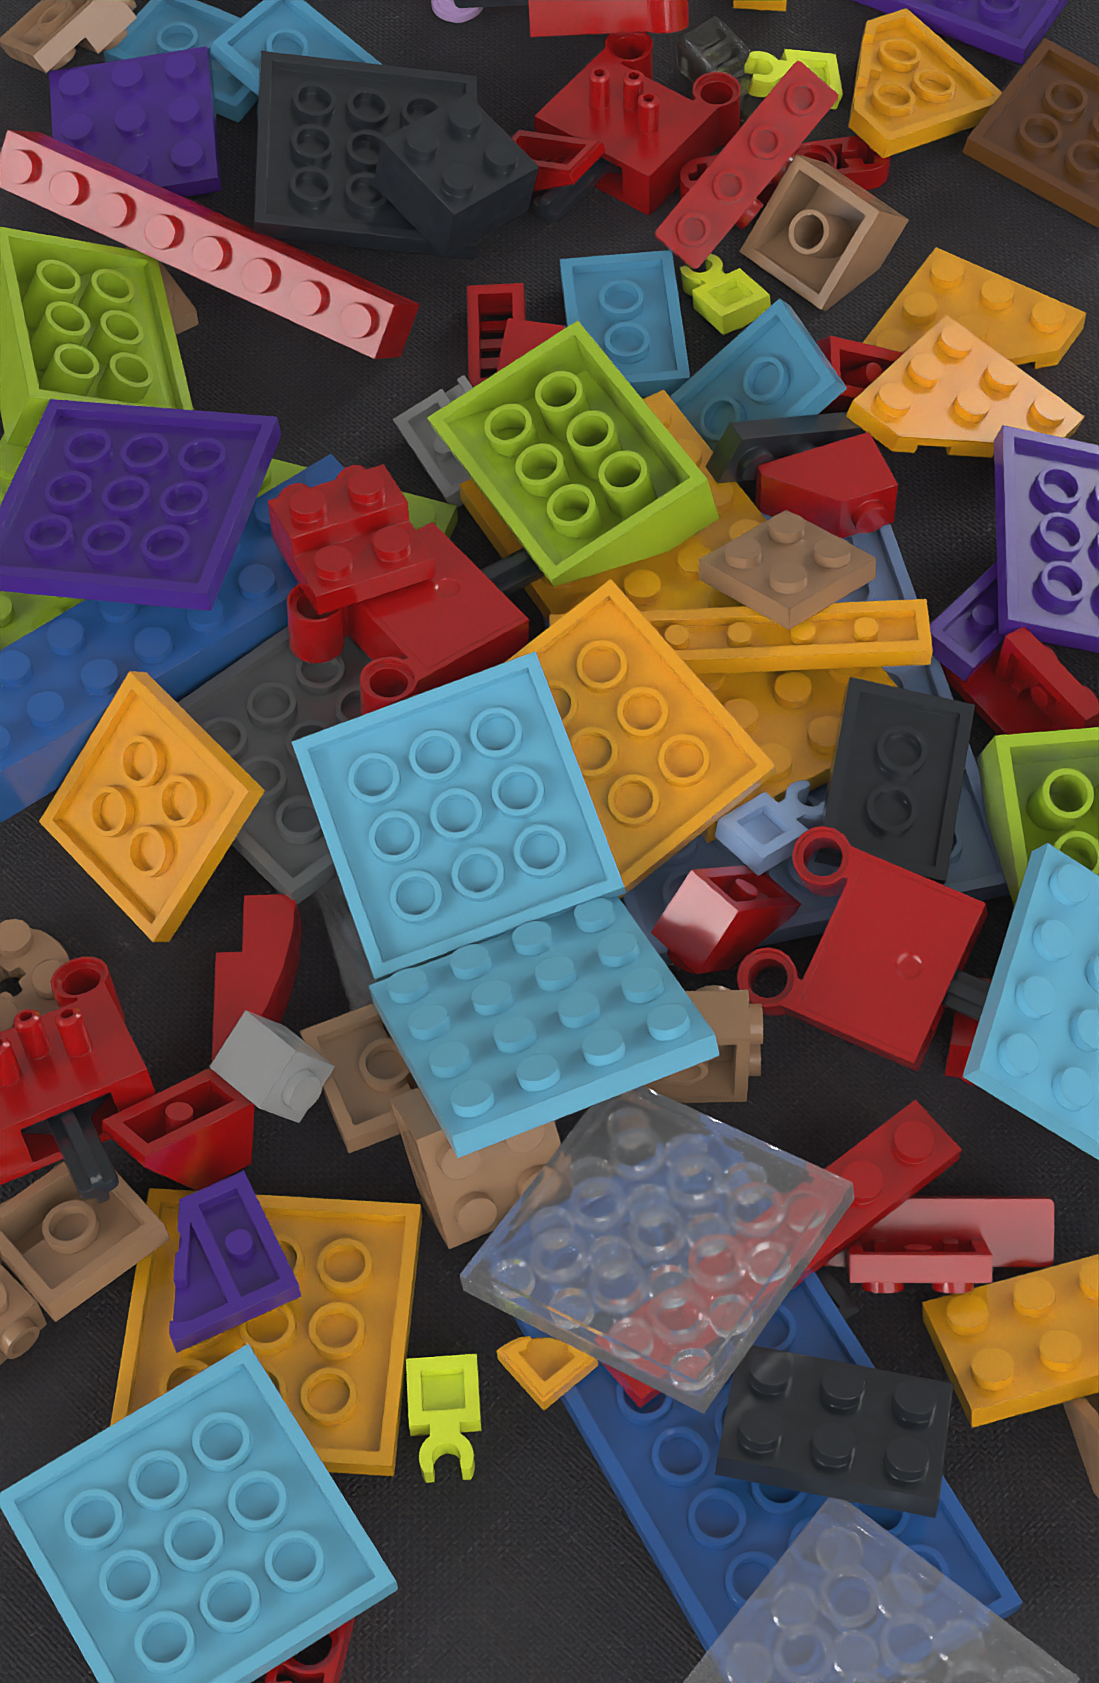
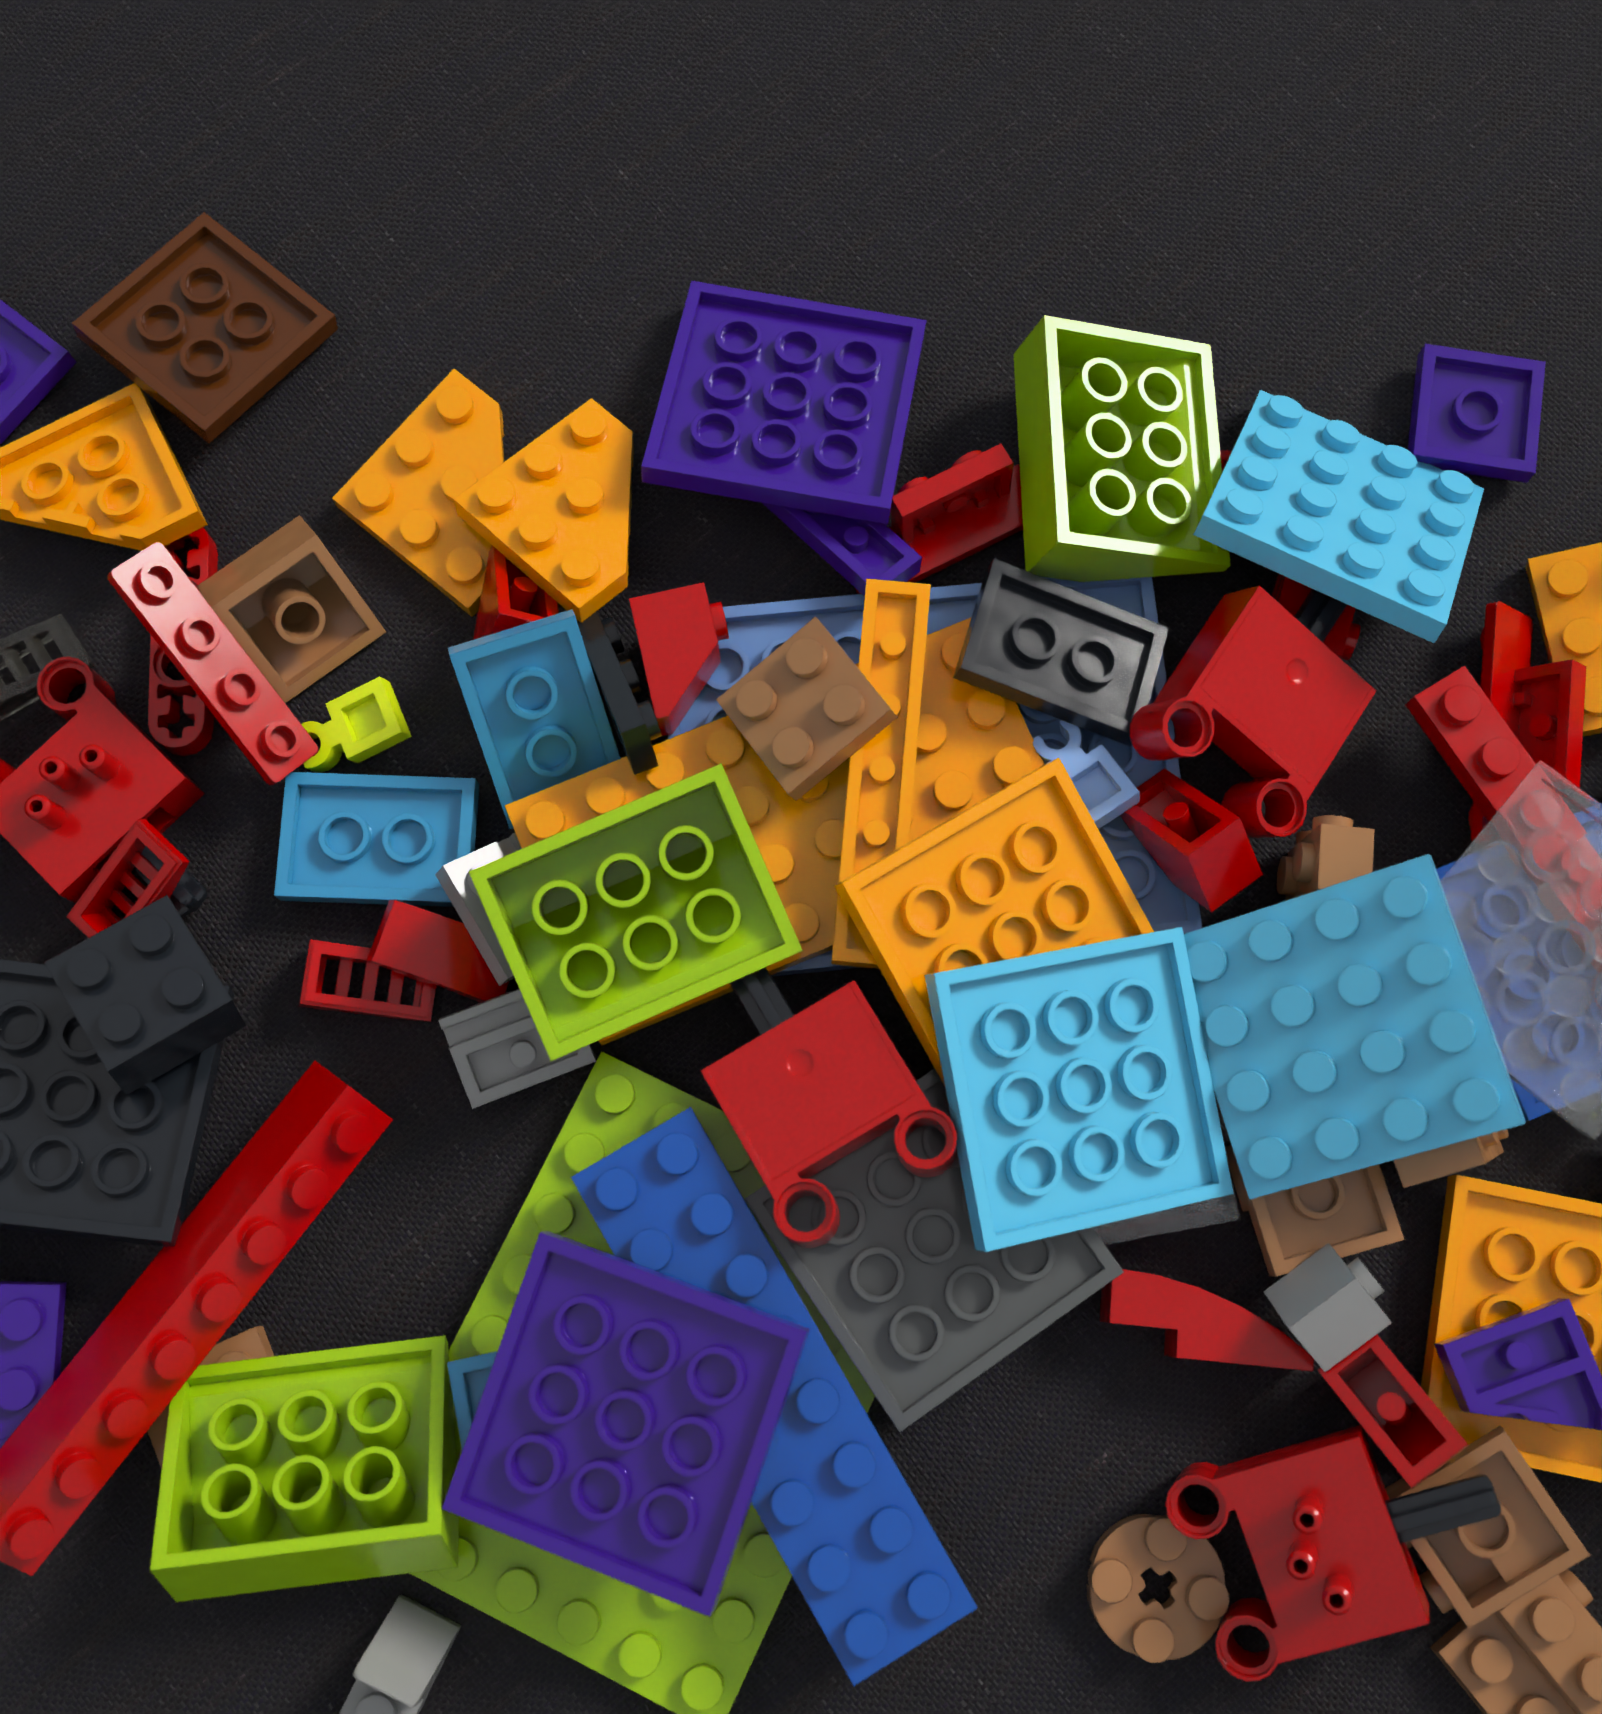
camera: 85 degrees left, 20 degrees up
(151, 806) = (994, 1416): light orange plate -> none
(349, 538) = (734, 1163): red plate -> none
(769, 70) = (46, 592): neon yellow plate -> none

